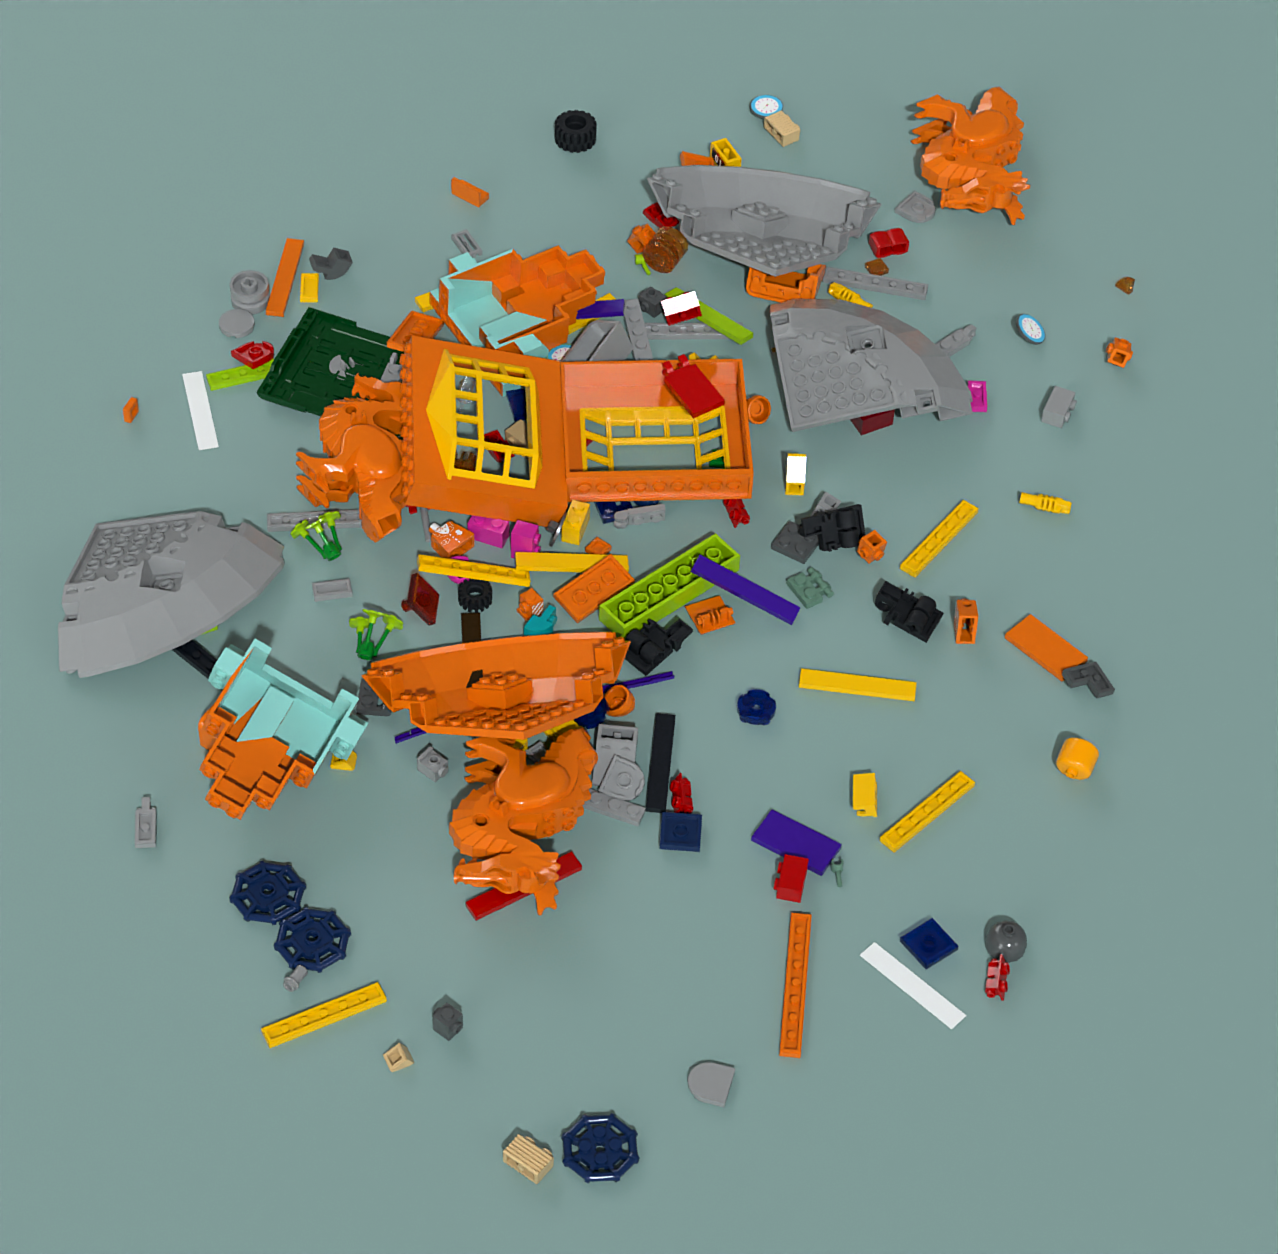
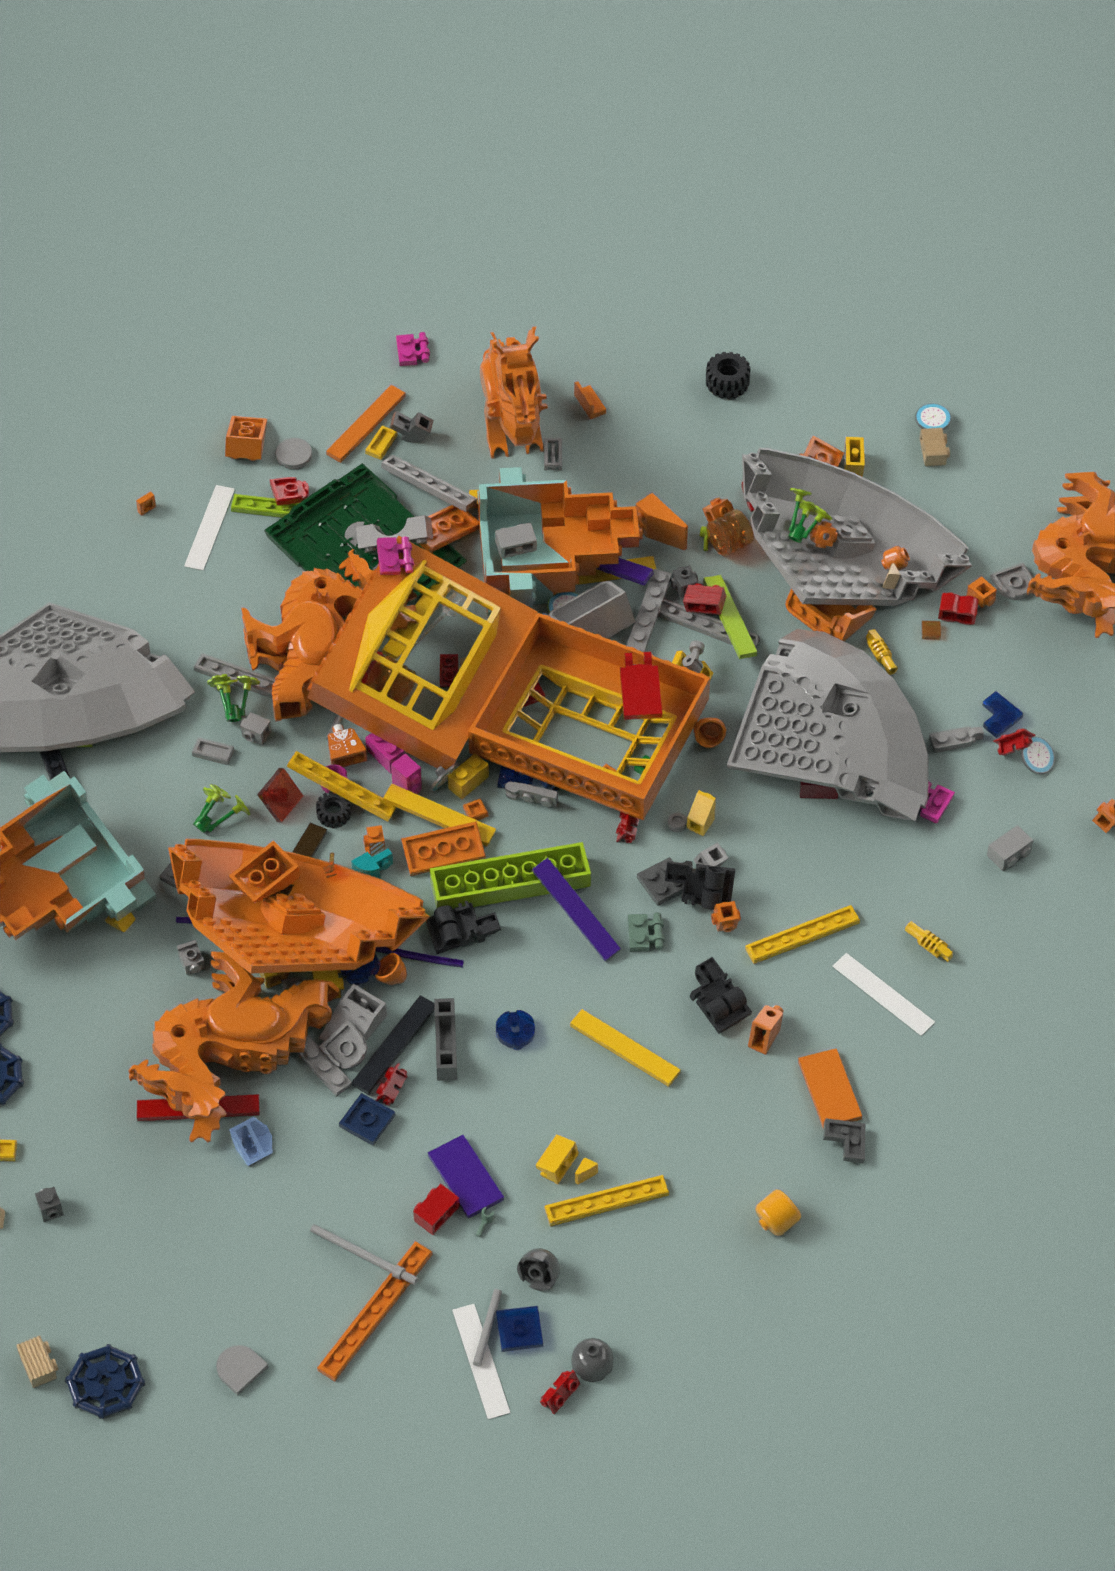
camera: 30 degrees right, 5 degrees up
(186, 325) = (245, 438): none -> orange slope
(249, 291) = (320, 426): light grey wheel -> none
(281, 208) = (406, 349): none -> dark pink plate
(359, 555) = (255, 728): none -> light grey brick
(363, 361) = (416, 528): none -> light grey arch
(379, 303) = (429, 483): none -> light grey plate
(415, 354) = (388, 555): none -> dark pink plate
(420, 187) = (511, 394): none -> orange animal
(460, 663) = (266, 873): none -> orange slope
(493, 316) = (515, 540): none -> light grey brick
(509, 642) = (330, 869): none -> clear orange hand
(592, 892) = (252, 1140): none -> light blue slope
(615, 262) = (661, 522): none -> orange slope
(693, 723) = (445, 1039): none -> dark grey arch
(703, 348) = (692, 660): none -> light grey leg
(710, 614) = (534, 919): orange hinge -> none
(724, 204) = (797, 531): none -> plant
(748, 220) = (819, 530): none -> orange brick
(775, 492) = (677, 822): none -> light grey tile
(797, 941) = (397, 1271): none -> light grey bar
(814, 222) = (897, 556): none -> orange head
(823, 235) = (892, 577): none -> tan slope
(876, 283) = (919, 645): light grey tile -> none
(896, 792) = (586, 1170): none -> yellow slope
(900, 220) = (983, 591): none -> orange brick
(900, 955) = (487, 1327): none -> light grey bar
(915, 887) = (539, 1268): none -> dark grey cylinder
(981, 308) = (1003, 712): none -> clear blue plate
(1013, 318) = (1020, 739): none -> red hinge
(1035, 558) = (883, 994): none -> white sticker

